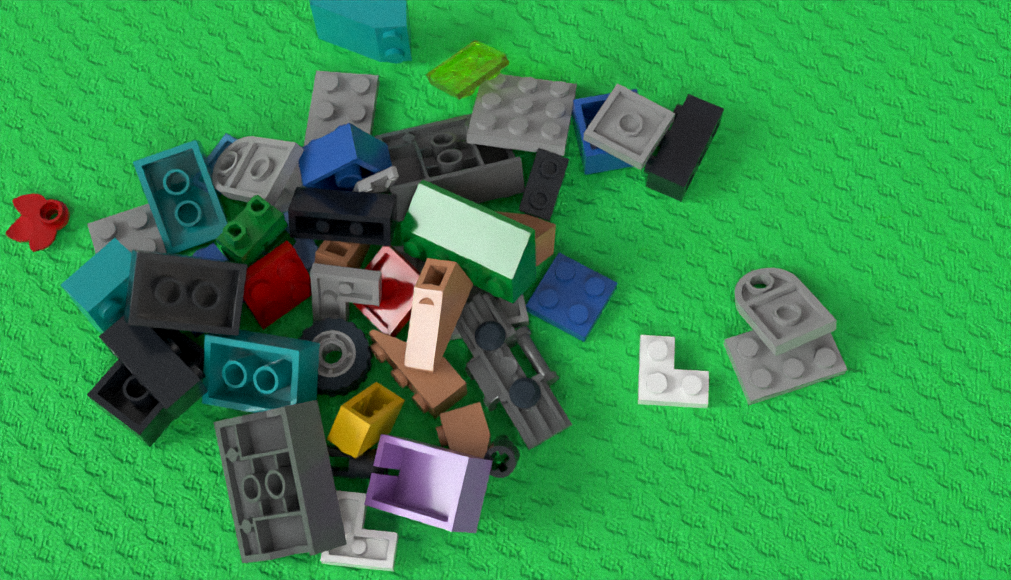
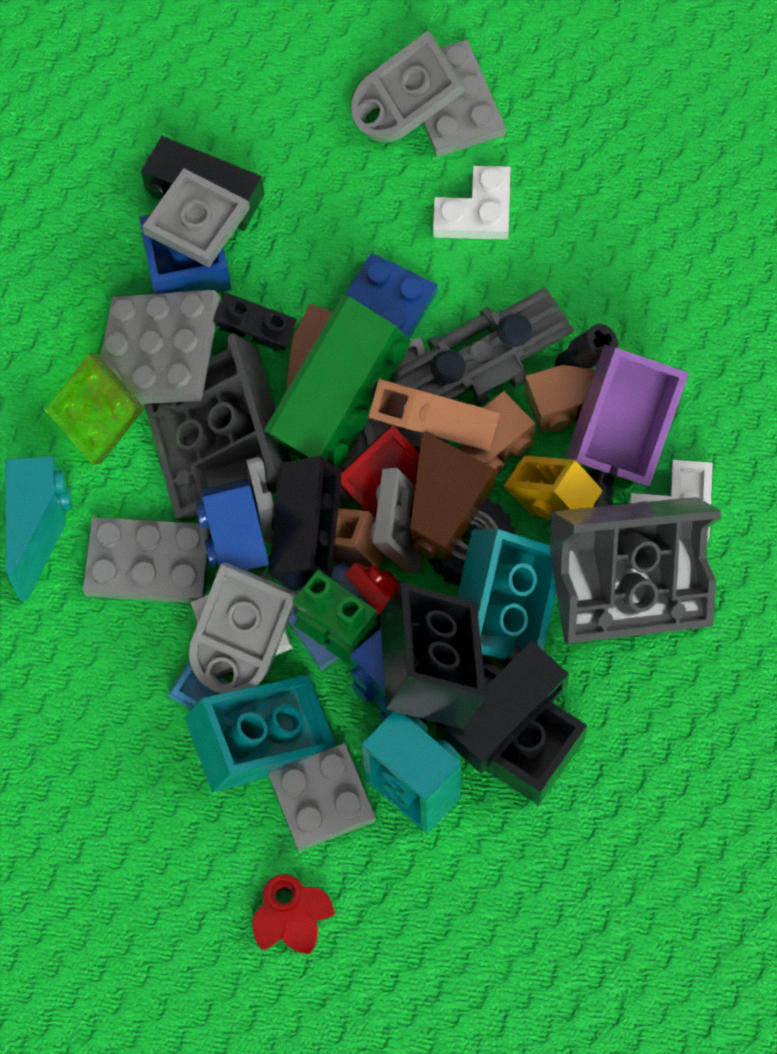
camera: 90 degrees left, 0 degrees up
(357, 324) = (446, 496): none -> reddish brown slope

